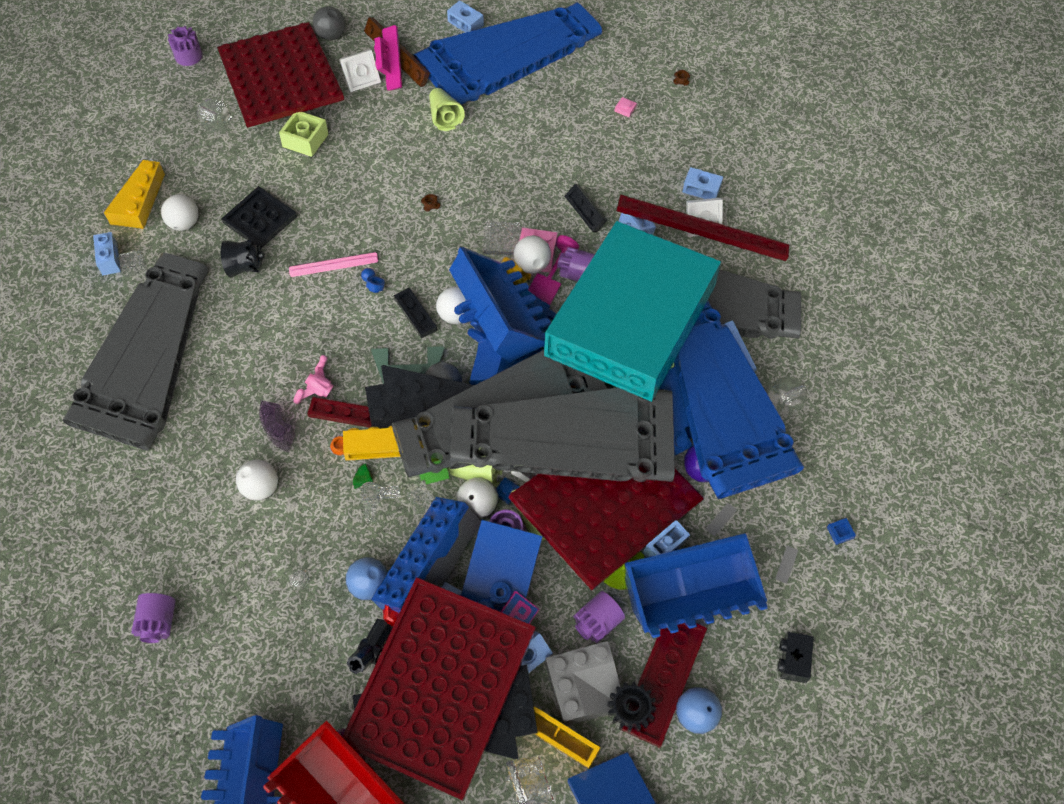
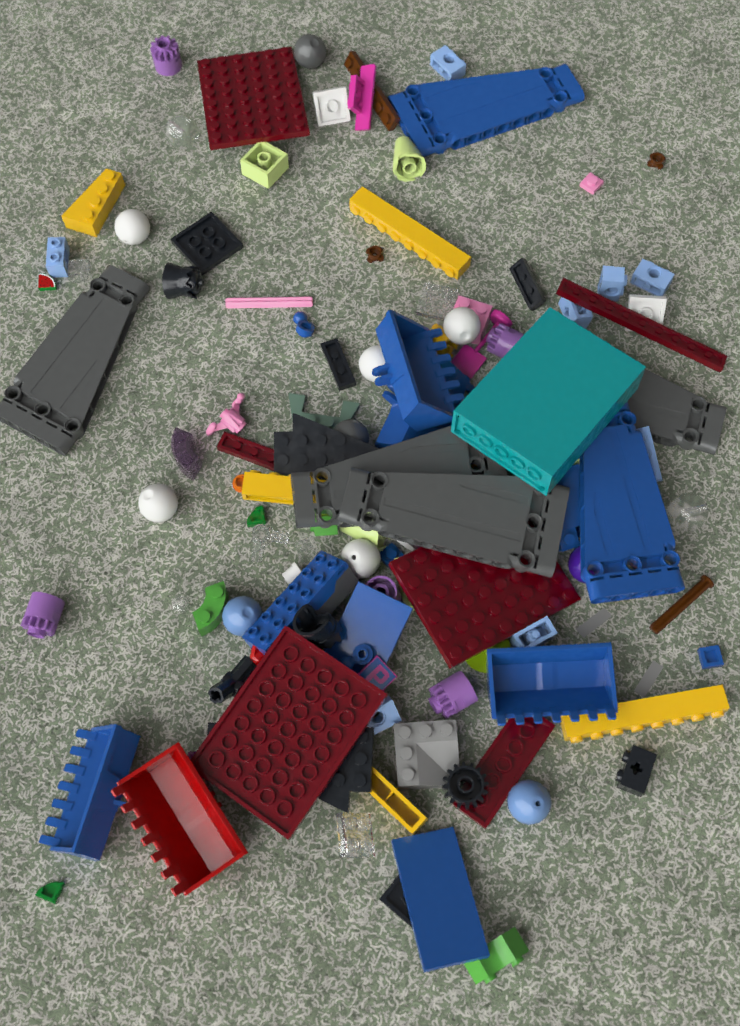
camera: 15 degrees right, 5 degrees up
(98, 281) = (46, 283): none -> tile
(333, 580) = (210, 612): none -> bright green brick
(409, 526) = (291, 573): none -> white piece
(451, 575) = (318, 629): none -> black hat
(461, 177) = (410, 233): none -> yellow brick
(666, 192) = (612, 282): none -> light blue brick
(796, 596) = (651, 712): none -> yellow brick
(802, 485) = (681, 604): none -> reddish brown axle

